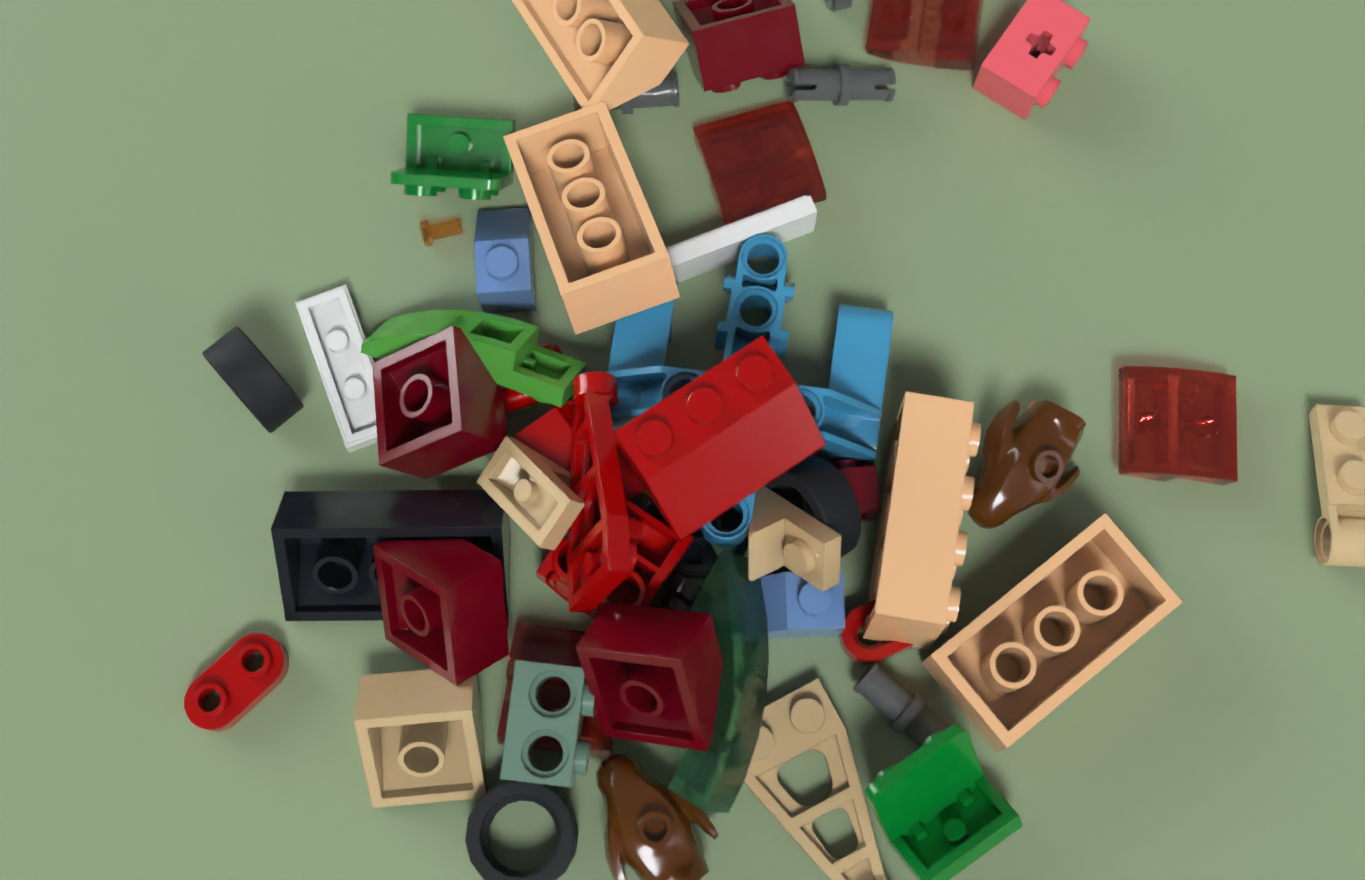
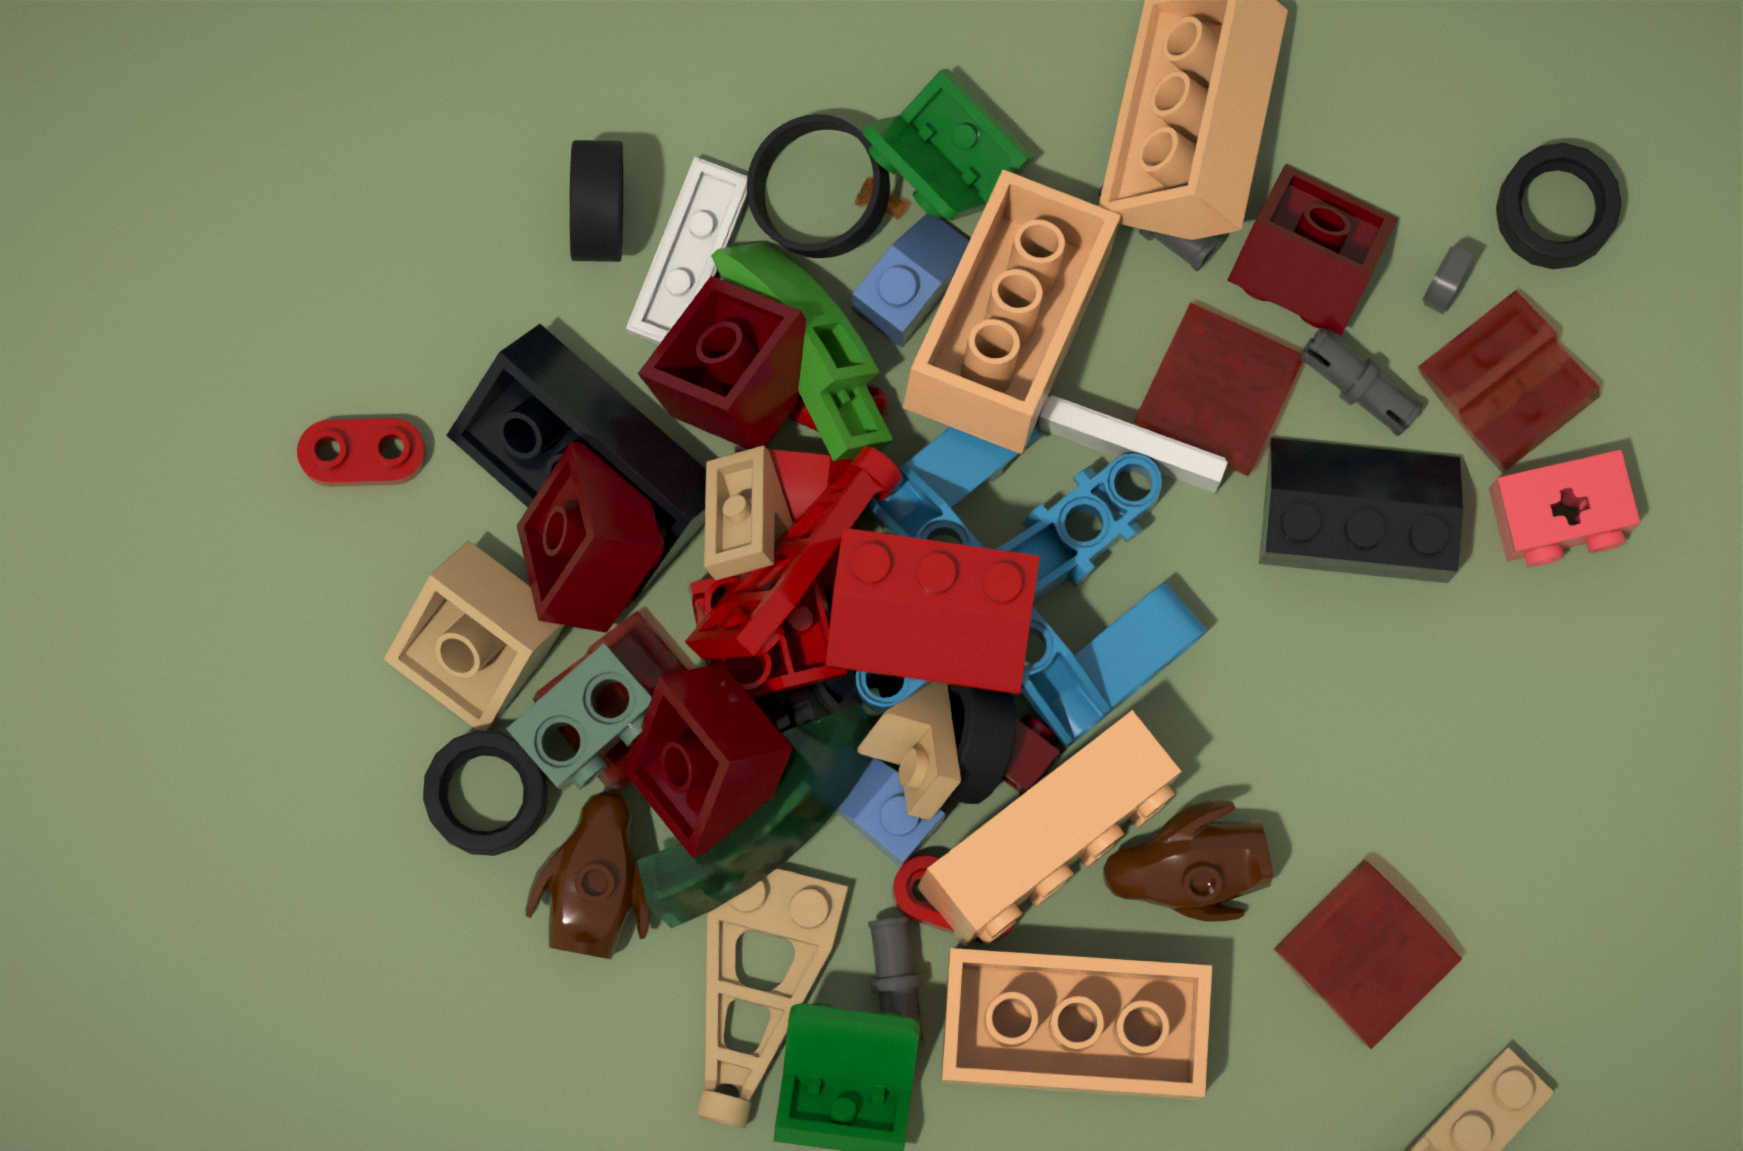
camera: 40 degrees right, 5 degrees up
(344, 234) = (762, 162): none -> black tyre
(917, 161) = (1362, 511): none -> black slope

